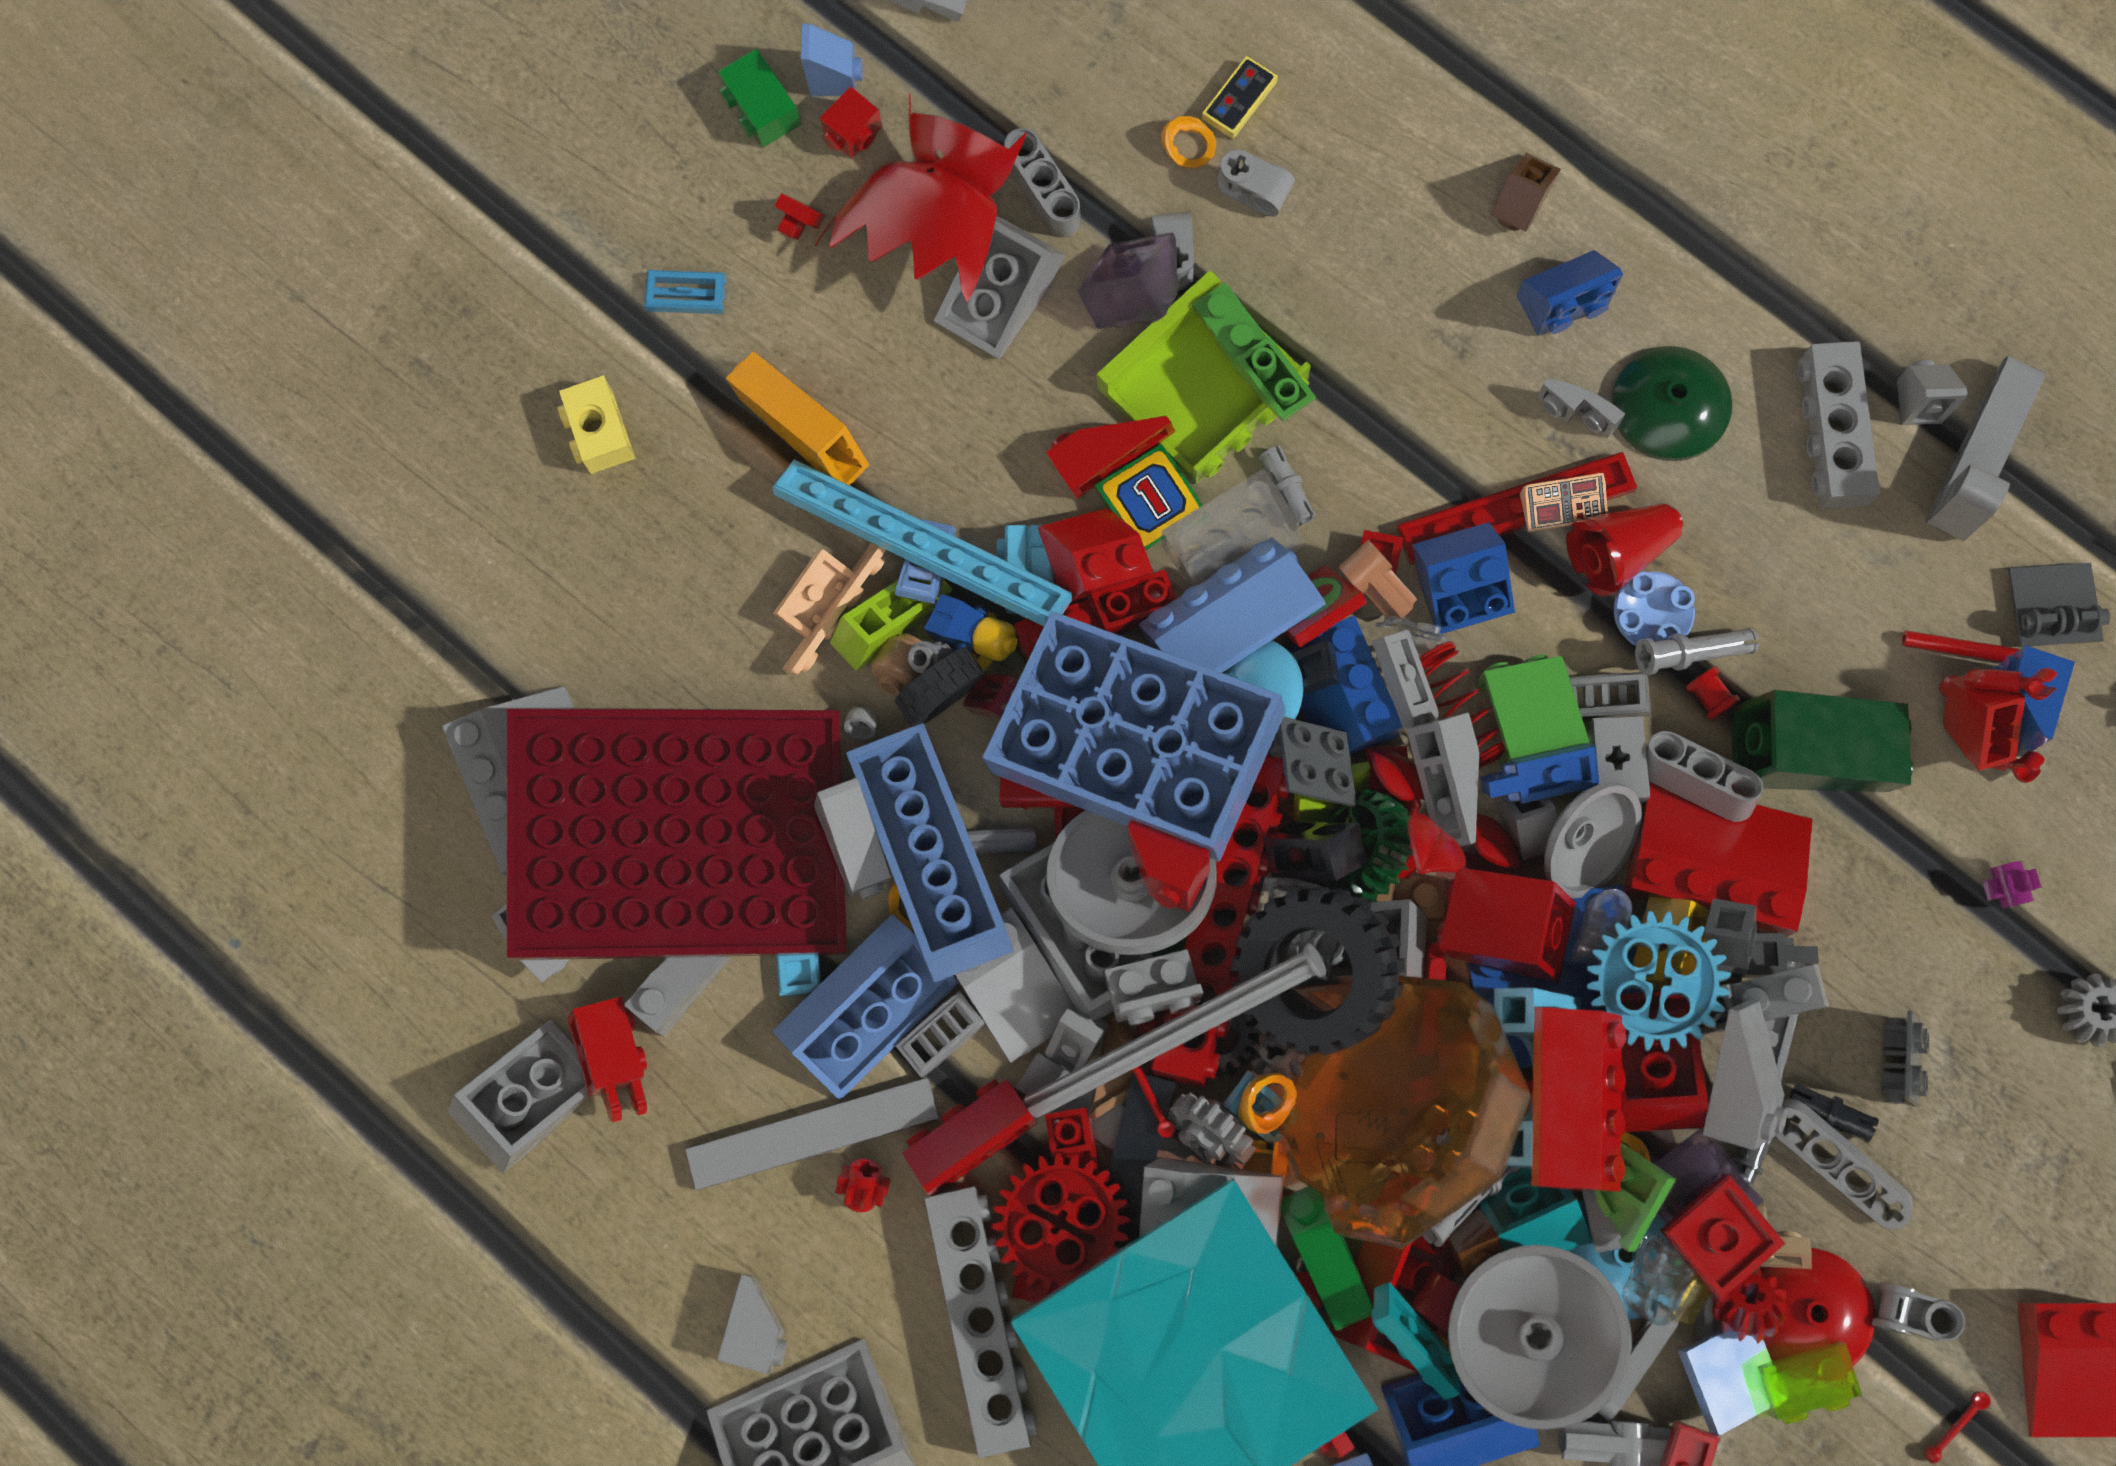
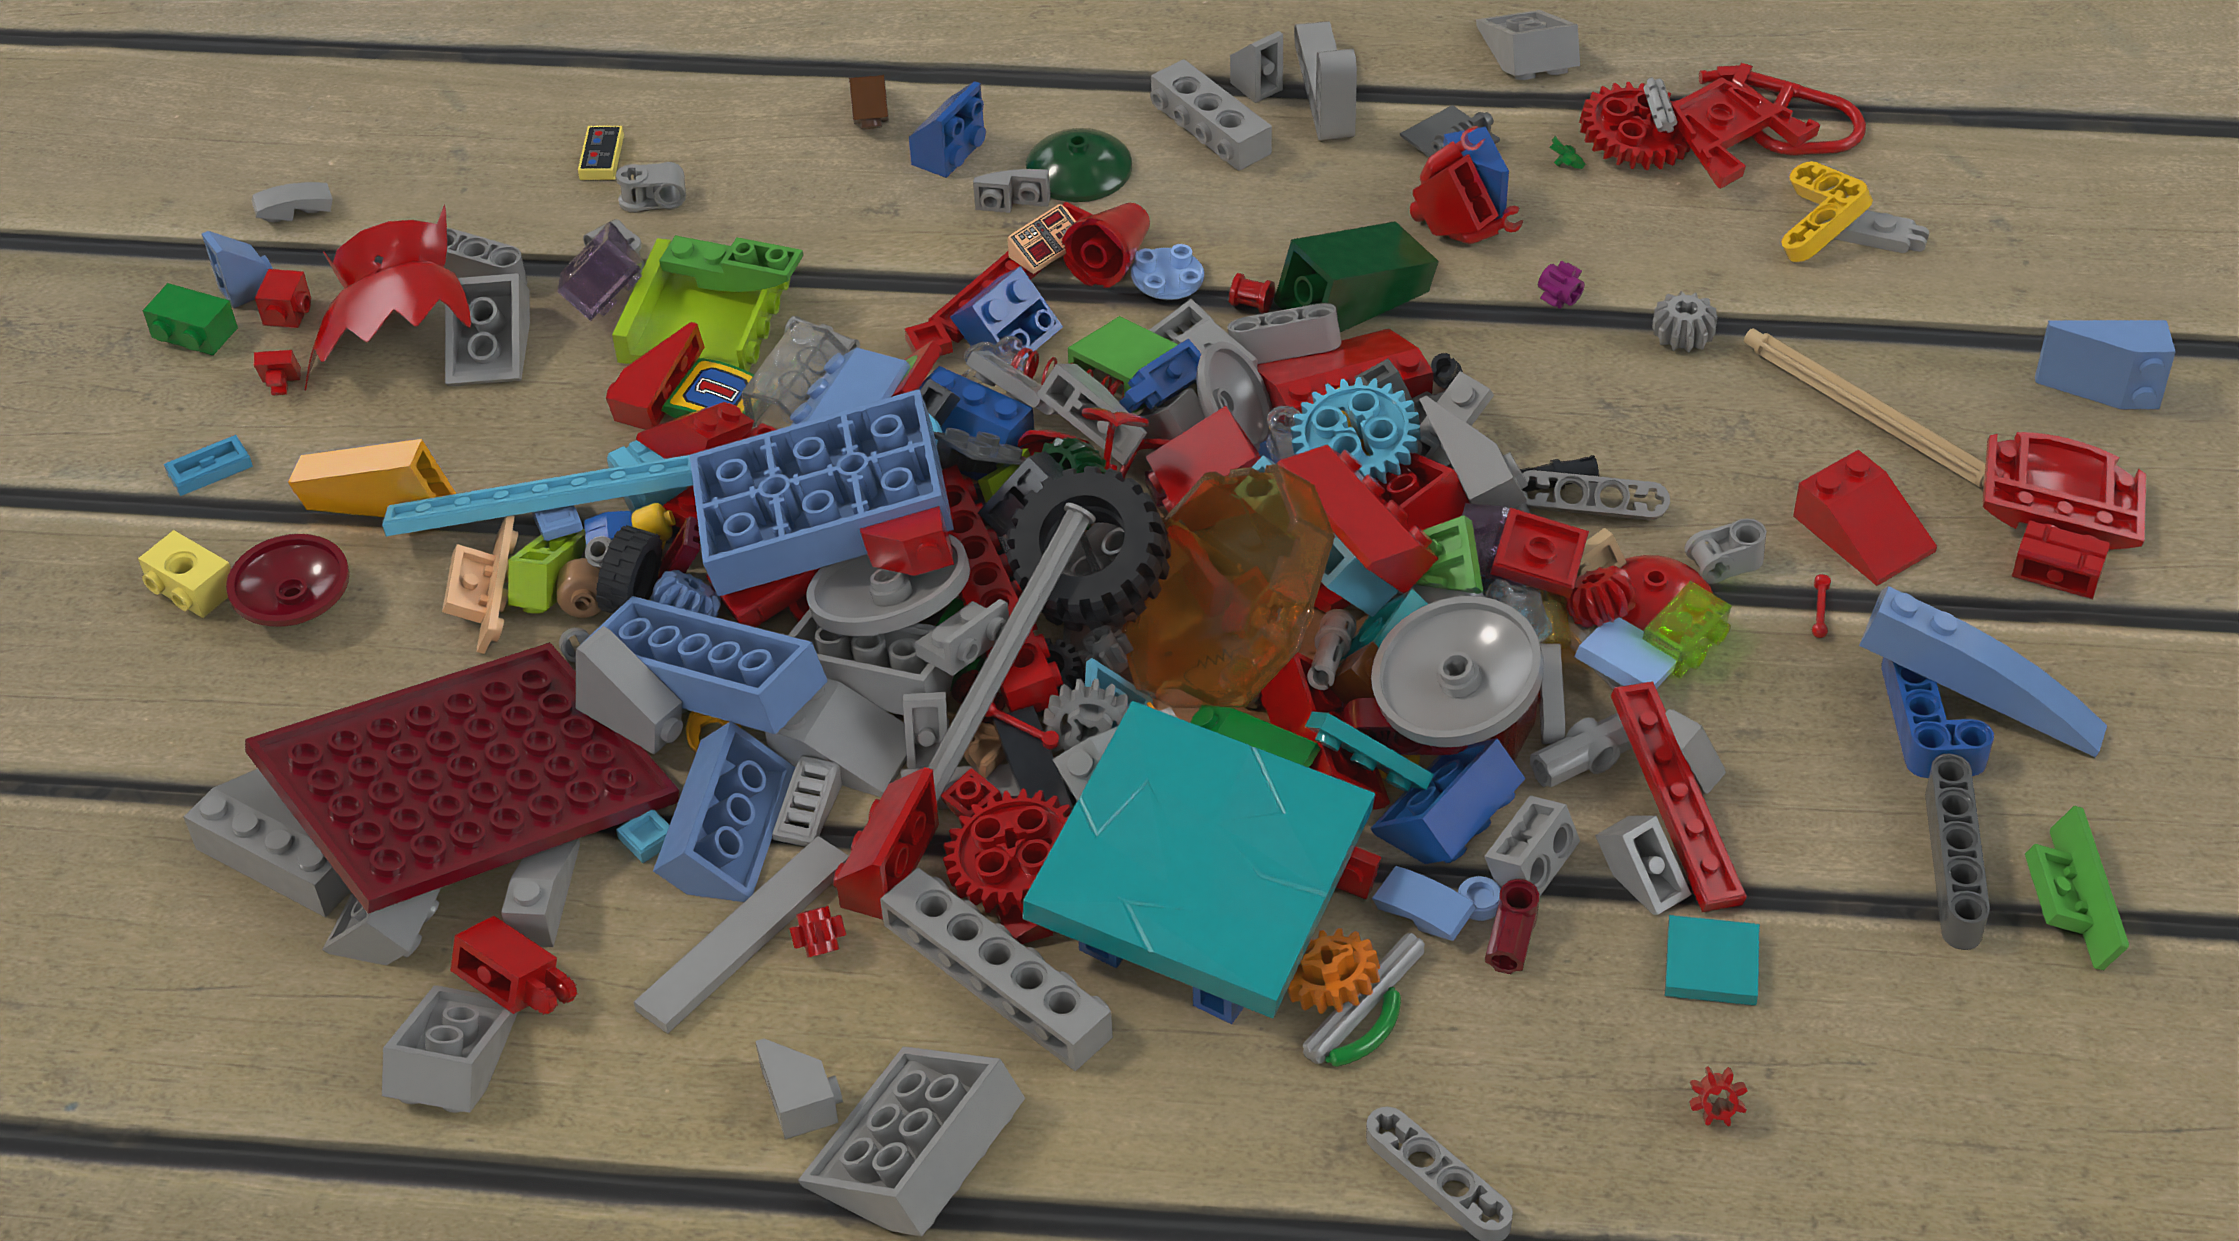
camera: 40 degrees left, 30 degrees down
(650, 479) = (288, 580): none -> dark red dish
(964, 745) = (686, 593): none -> medium blue gear
(1187, 124) = (568, 183): light orange piece -> none
(1271, 1119) = (1108, 676): light orange piece -> none
(1373, 575) = (929, 327): nougat piece -> none
(1681, 651) = (1207, 273): light grey pin -> none
(1812, 936) = (1444, 370): none -> black axle
(1916, 1042) = (1580, 412): dark grey hinge -> none
(1956, 646) = (1388, 195): red piece -> none

